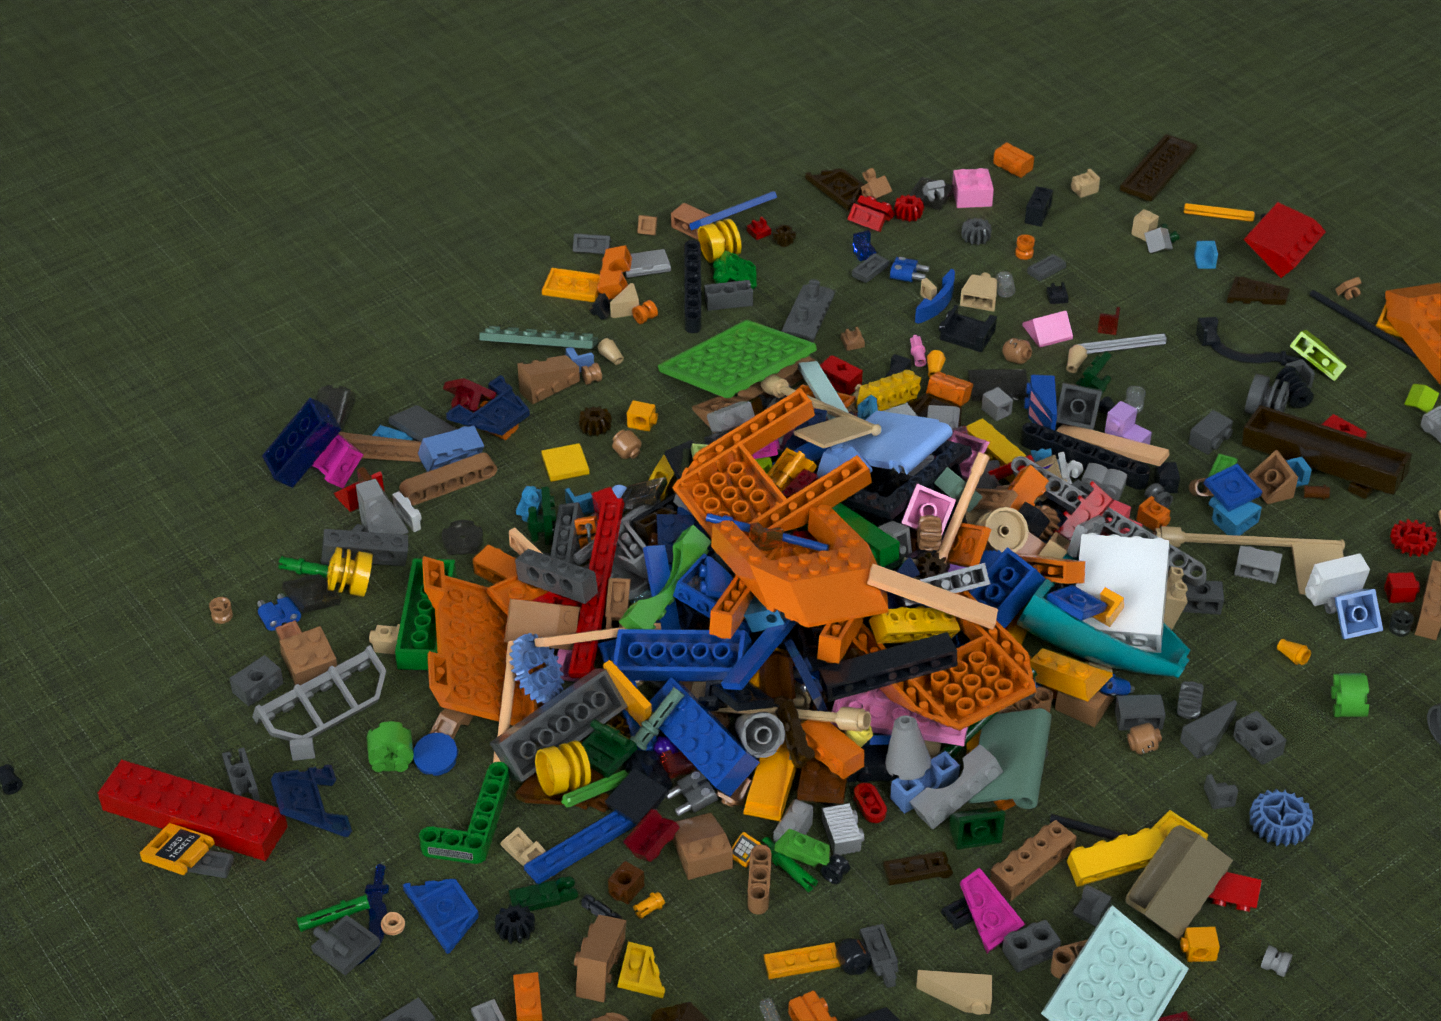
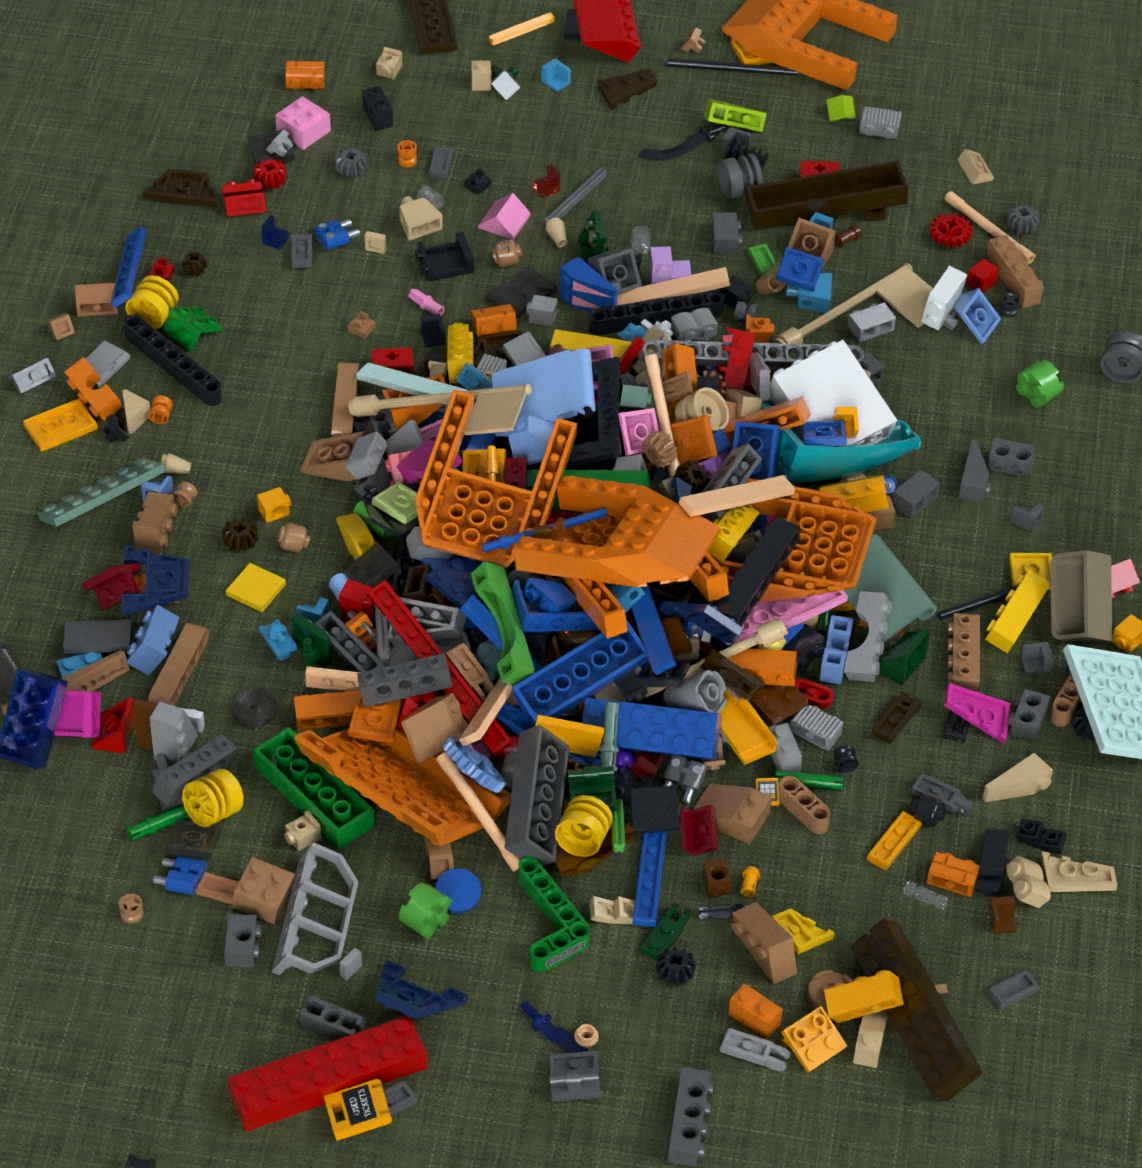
camera: 45 degrees left, 5 degrees up
(305, 921) = (539, 1054): green pin -> none
(444, 909) = (610, 996): blue wing -> none
(728, 295) = (215, 348): dark grey piece -> none
(737, 358) = (301, 401): bright green plate -> none
(803, 848) = (816, 758): bright green bracket -> none
(809, 311) = (312, 325): dark grey piece -> none
(876, 186) = (223, 170): medium nougat brick -> none
(907, 751) = (816, 632): light grey cone -> none
(928, 309) = (389, 229): blue slope -> none
(935, 362) = (454, 304): light orange cone -> none
(1144, 738) = (939, 511): medium nougat head -> none
(1190, 700) = (942, 460): dark grey gear -> none
(1207, 331) = (628, 147): black panel -> none
(1281, 817) = (1085, 501): medium blue gear -> none
(1295, 652) = (964, 375): light orange cone -> none

